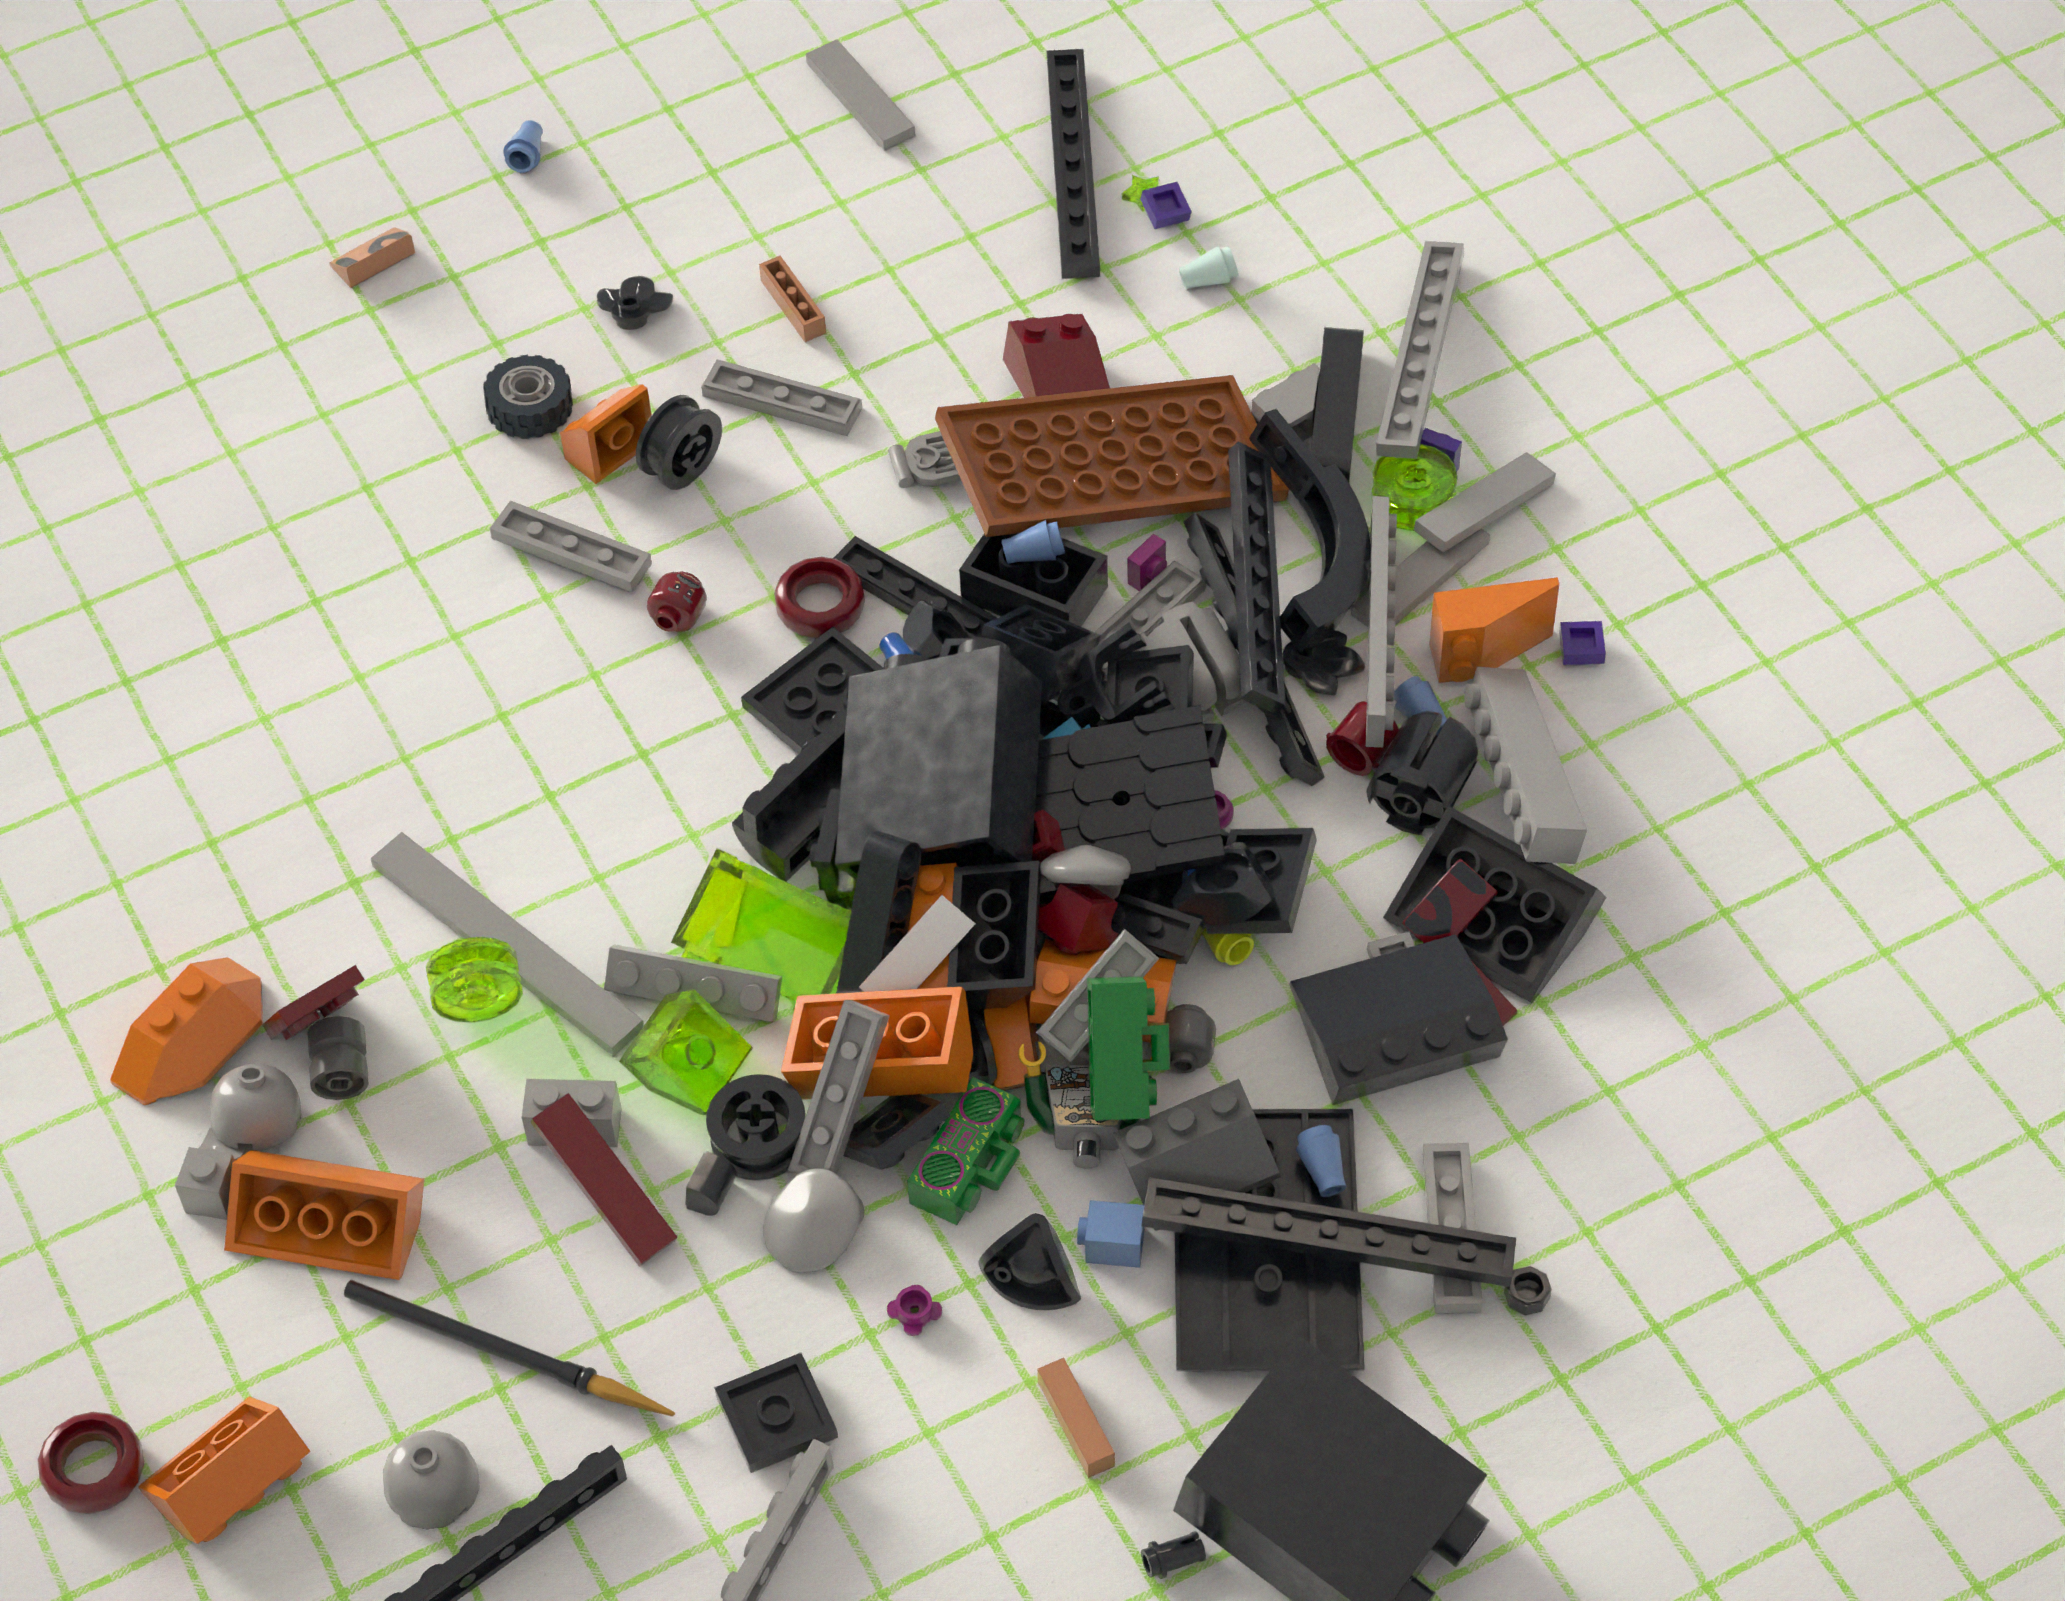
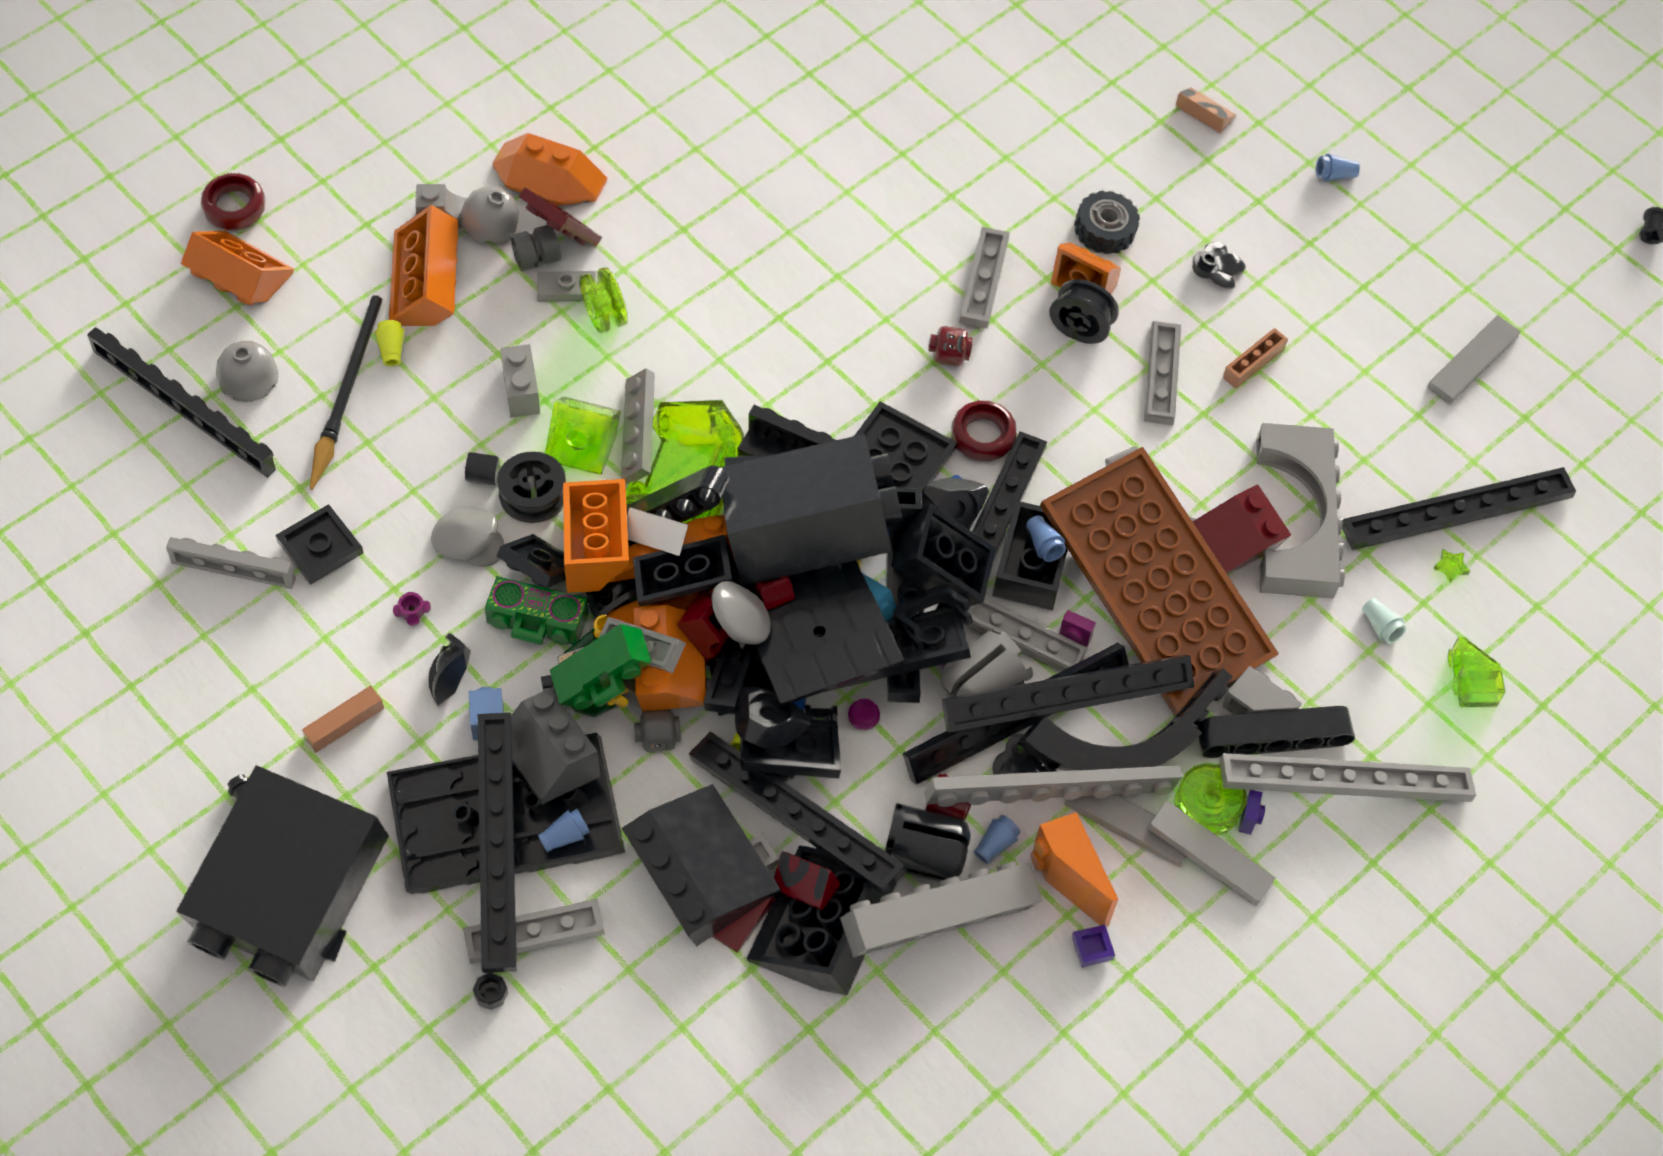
camera: 70 degrees right, 5 degrees up
(409, 1039) = (560, 285): none -> light grey plate
(442, 1275) = (390, 341): none -> neon yellow cone
(540, 967) = (650, 319): light grey tile -> none
(603, 1179) = (467, 406): dark red tile -> none
(839, 1088) = (548, 515): light grey tile -> none
(967, 277) = (1310, 457): none -> light grey arch
(1165, 205) = (1437, 578): dark purple plate -> none
(1304, 204) = (1476, 675): none -> clear neon green slope
(1357, 891) = (800, 815): none -> black plate

